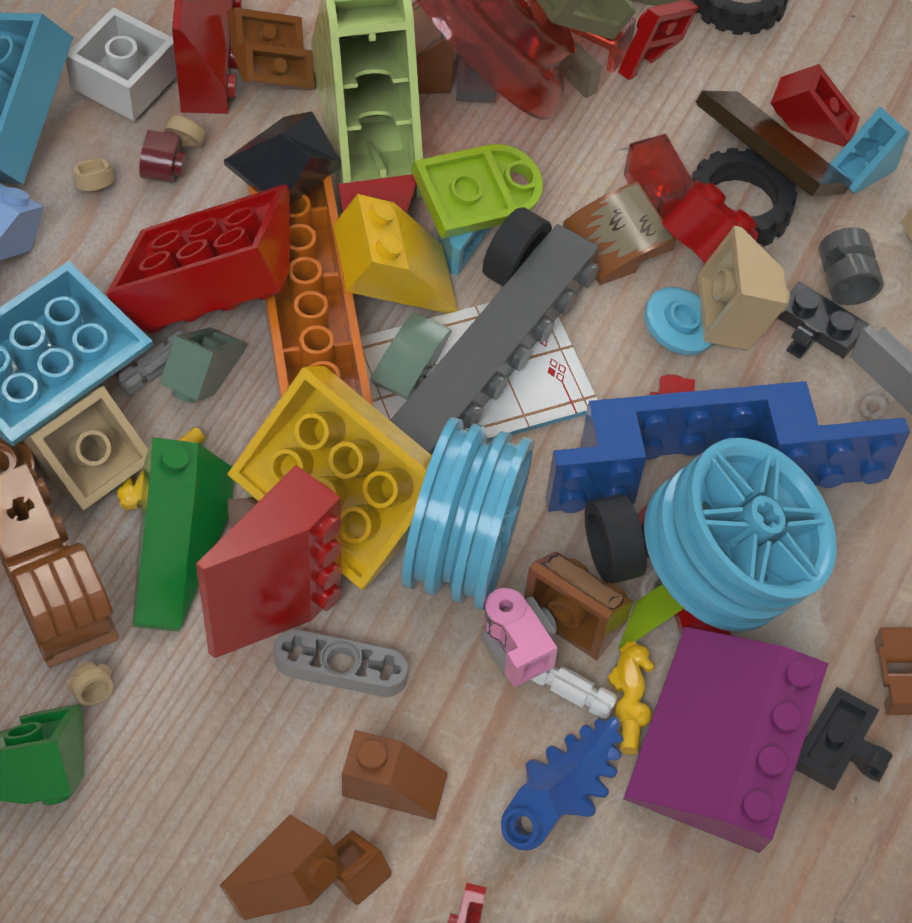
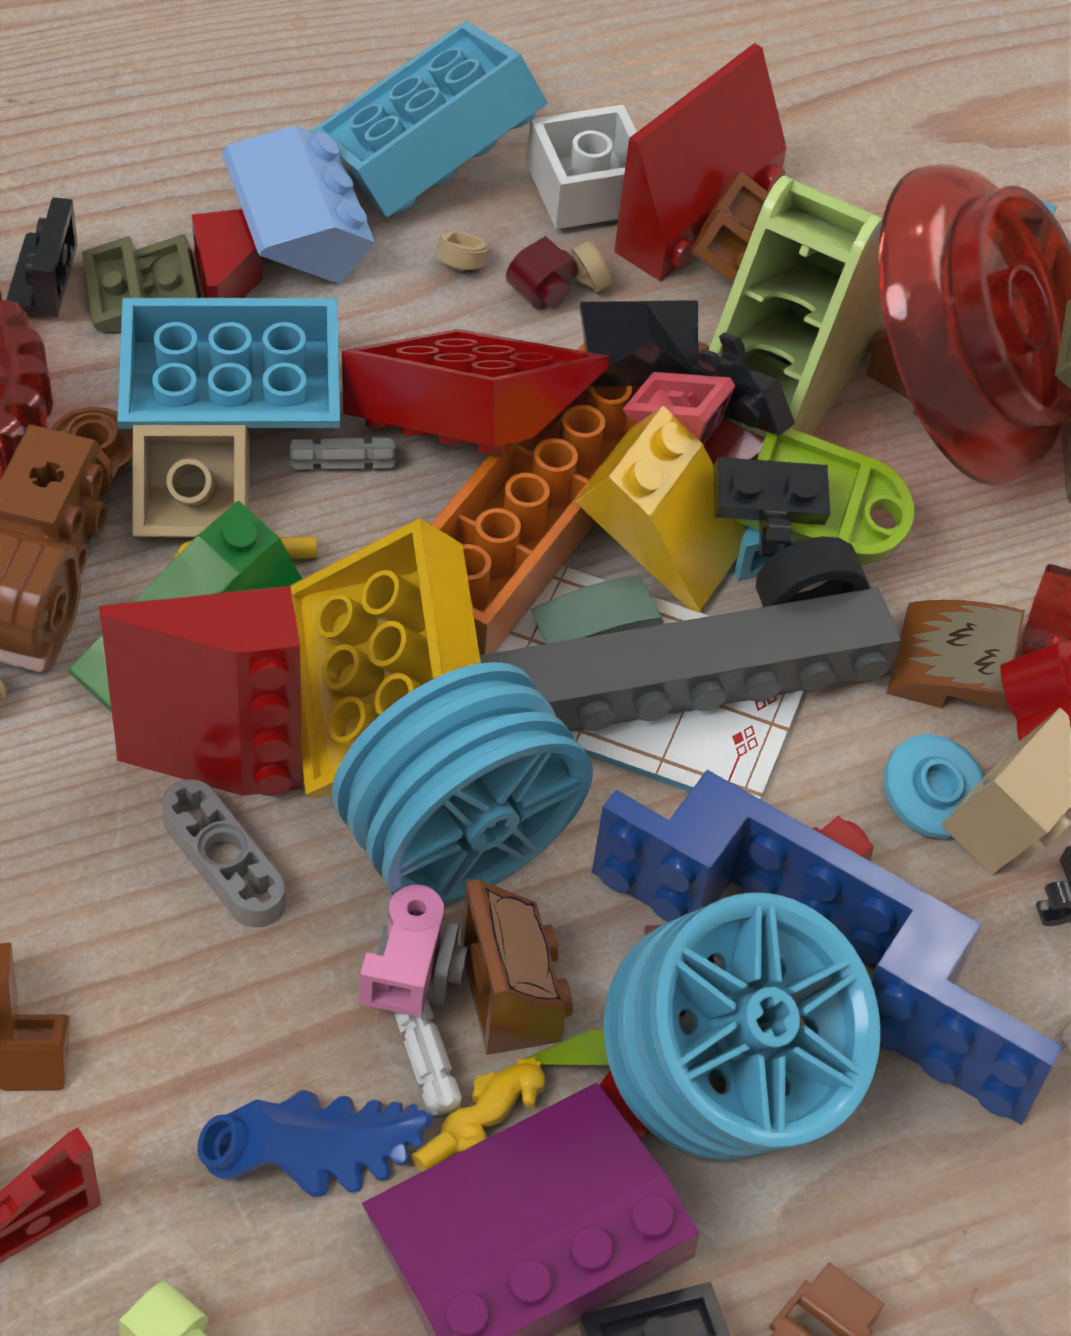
camera: 40 degrees right, 5 degrees down
(200, 363) = (380, 480): sand green slope -> none
(368, 176) = (693, 399): none -> coral slope
(384, 154) = (756, 396): none -> black plate
(392, 776) = (151, 991): dark orange slope -> none
(458, 207) = (773, 494): none -> black plate
(615, 538) = (610, 932): black tyre -> none

